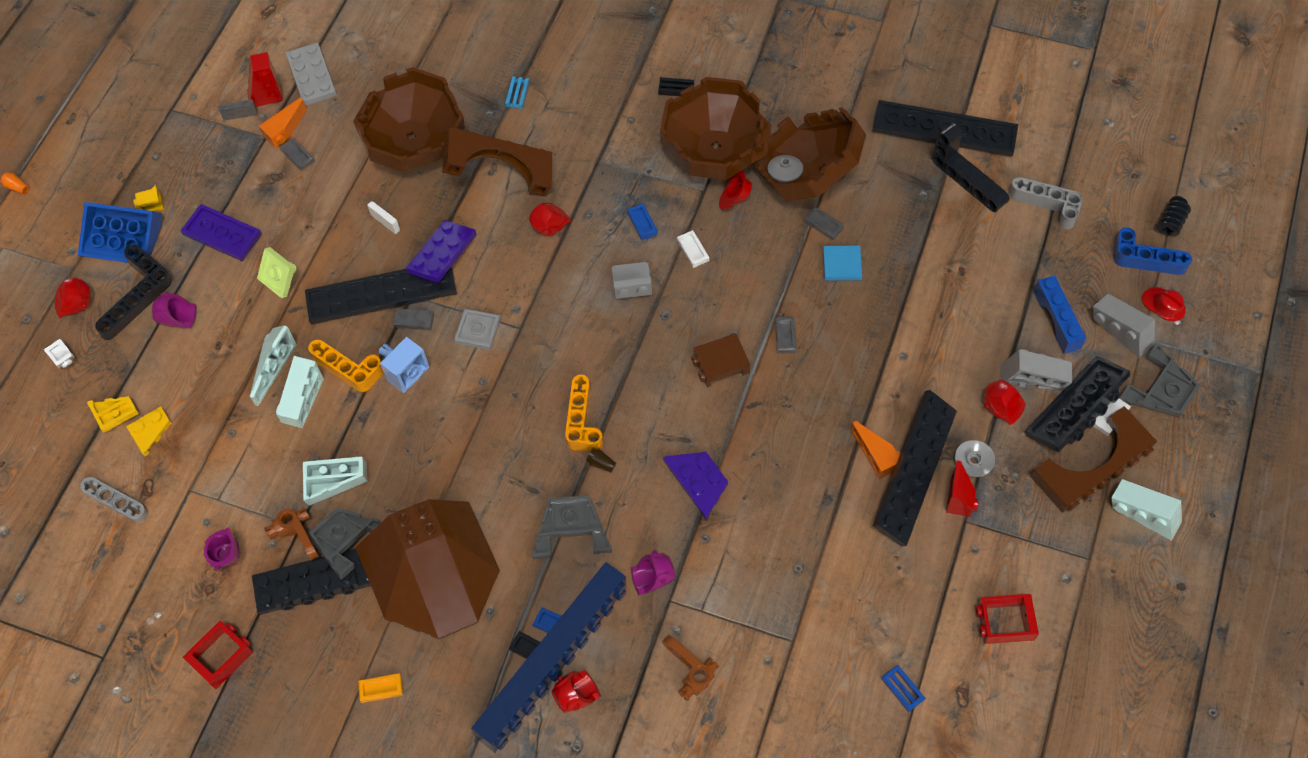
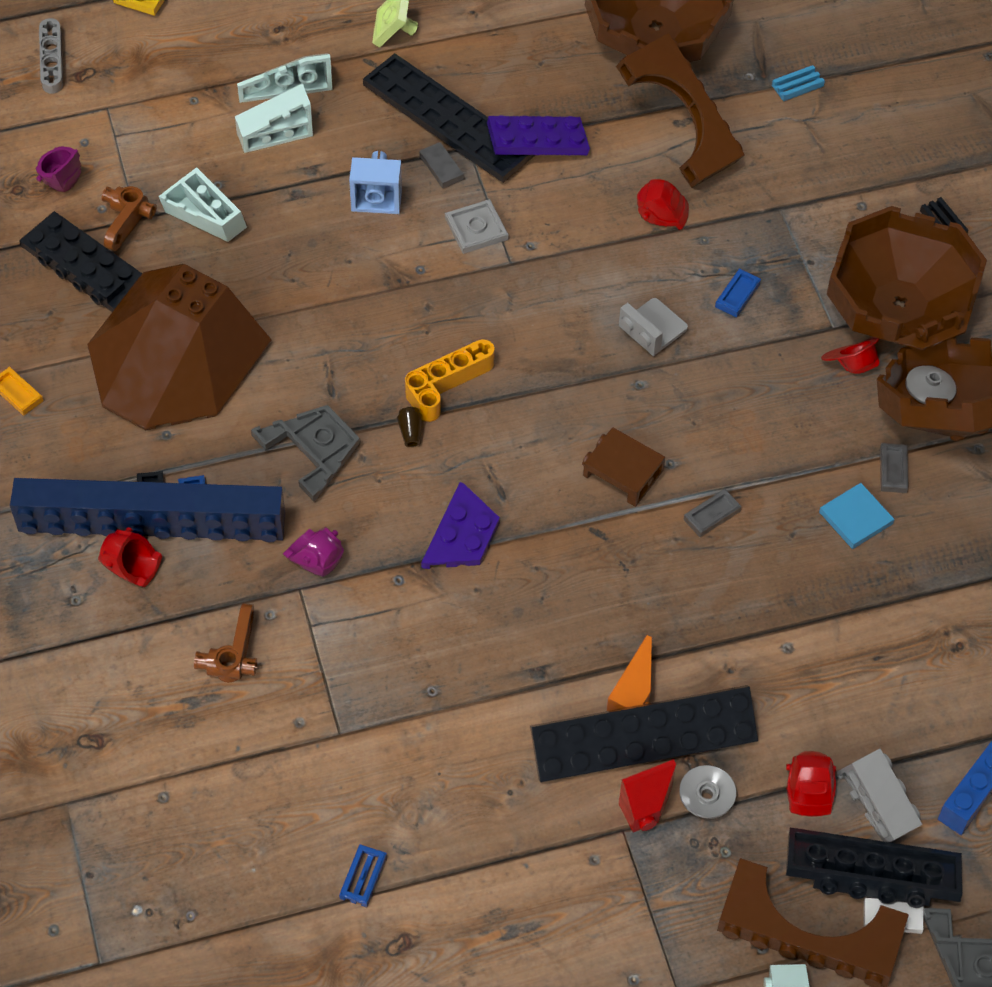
camera: 50 degrees right, 5 degrees down
(149, 429) = (144, 34): yellow wing -> none
(337, 534) = (143, 249): dark grey wing -> none
(342, 363) = (335, 155): light orange beam -> none
(383, 217) = (536, 63): white tile -> none
(693, 249) = (745, 360): white tile -> none
(1028, 616) = (542, 959): red window -> none

